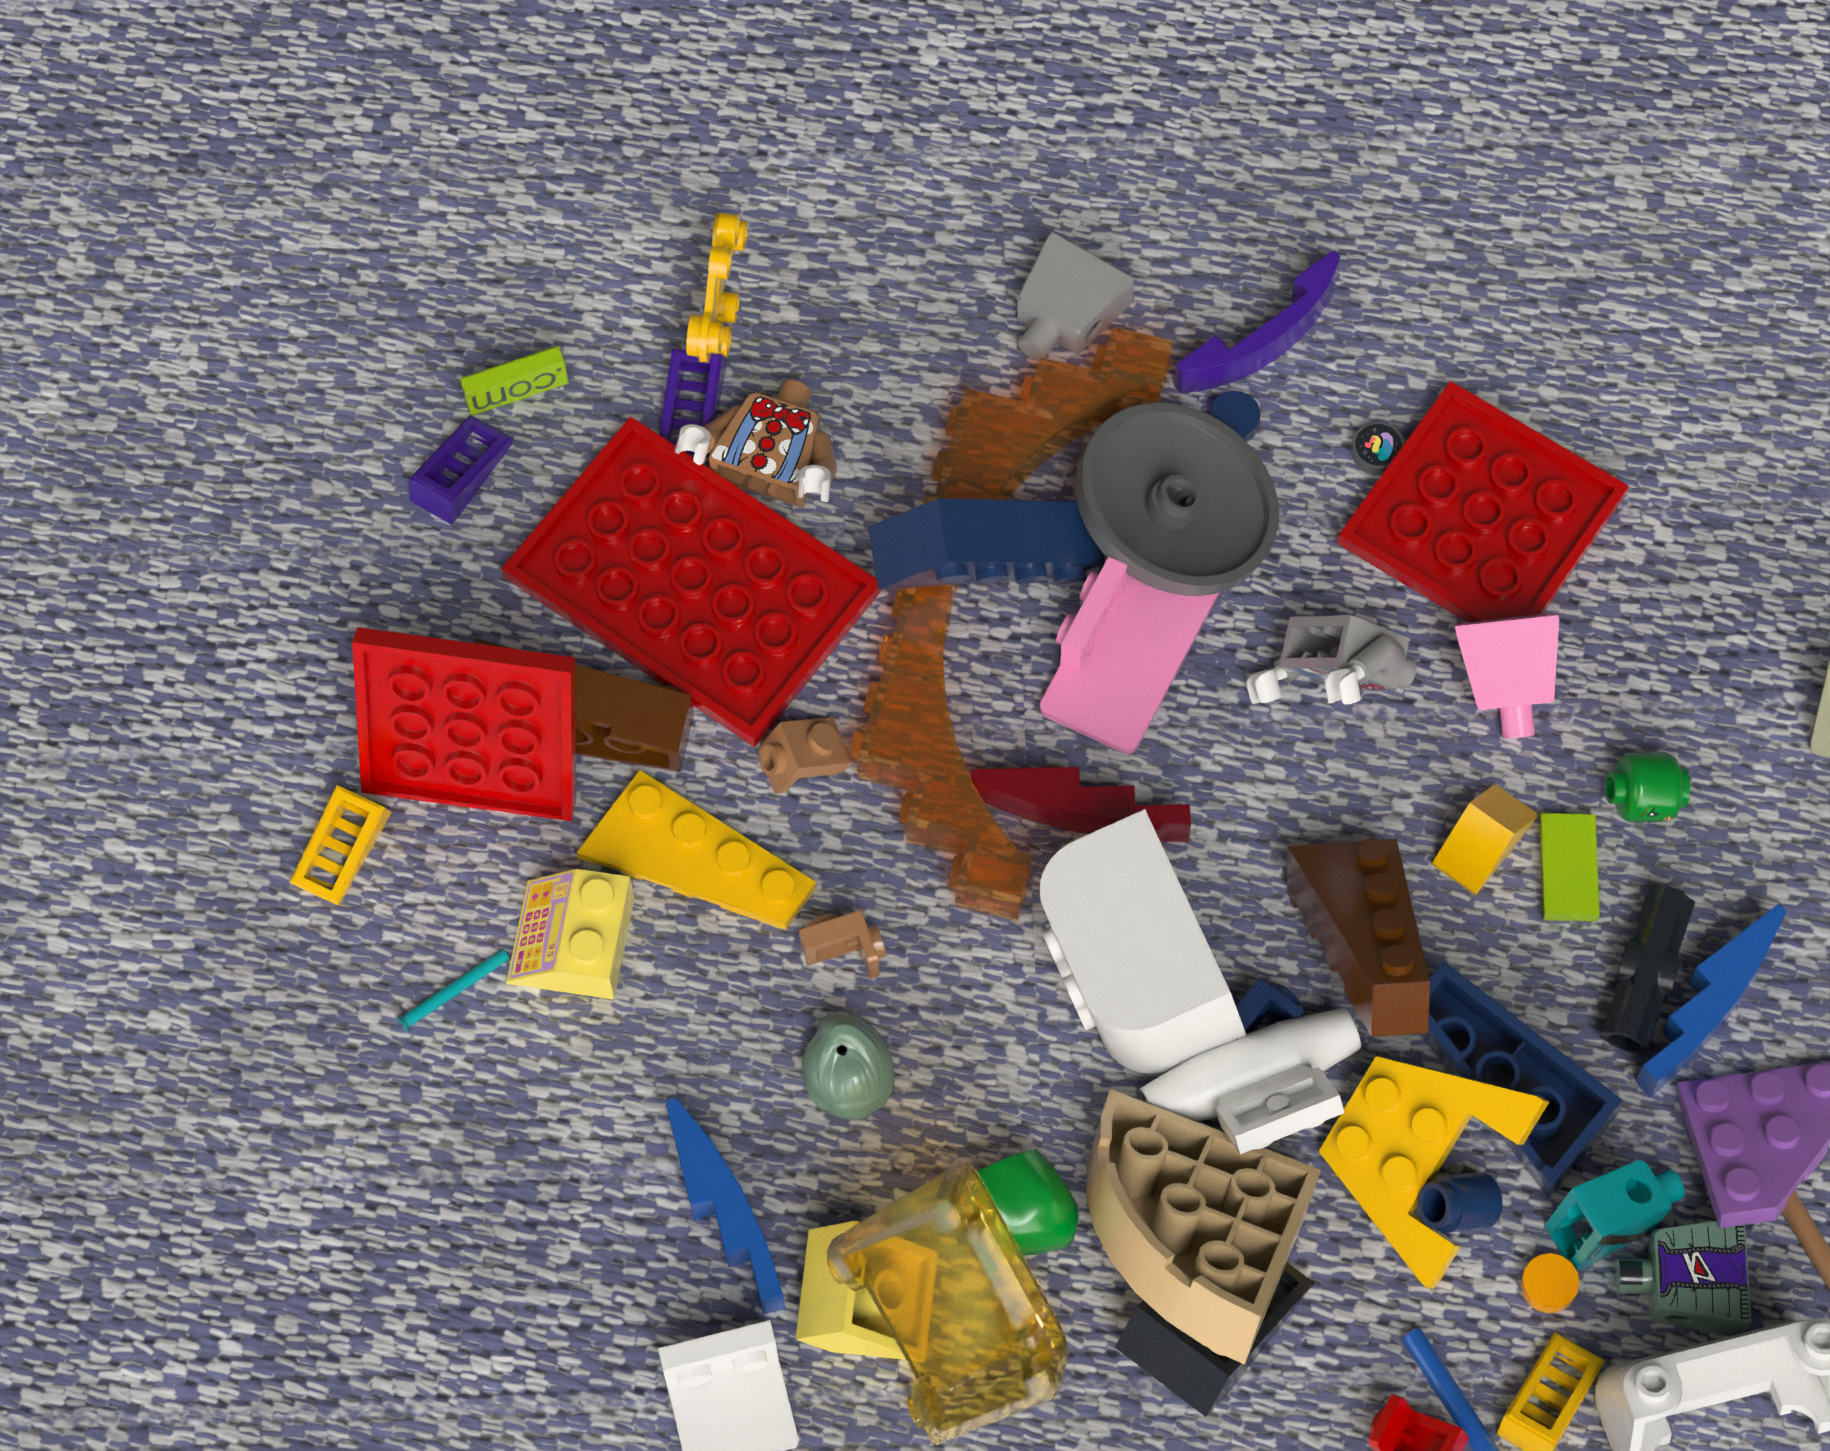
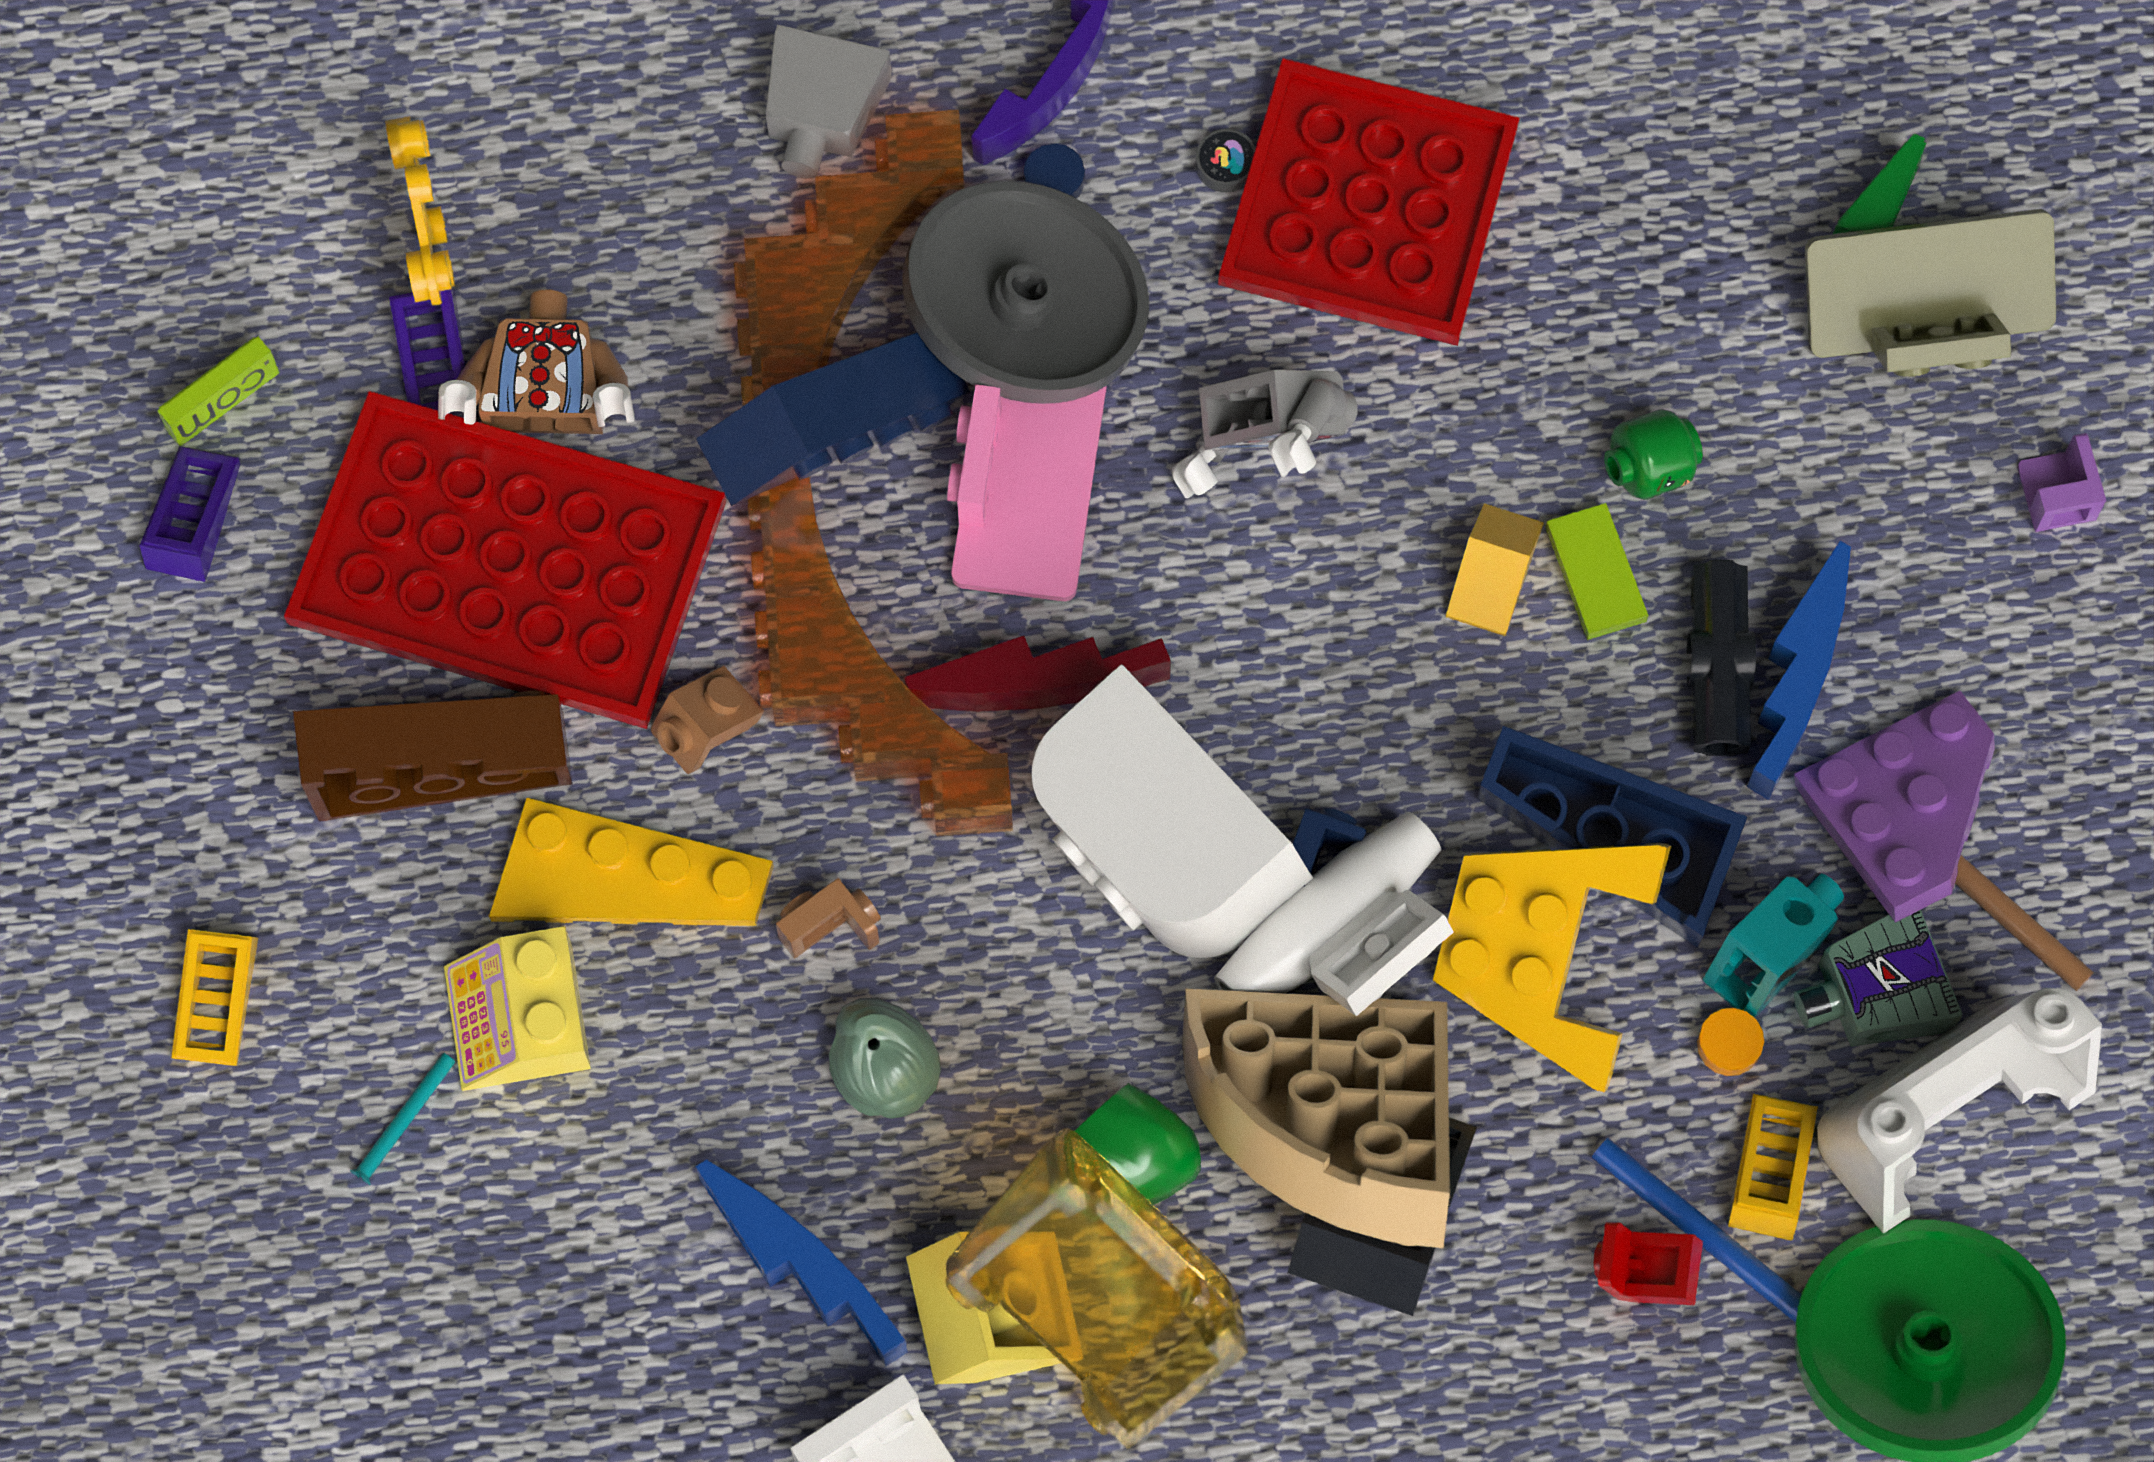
camera: 20 degrees left, 5 degrees up
(465, 723) = (317, 813): red plate -> none
(1365, 921) = (1402, 709): reddish brown wedge -> none
(1461, 1202) = (1608, 986): dark blue brick -> none
(1511, 666) = (1461, 365): bright pink torso -> none

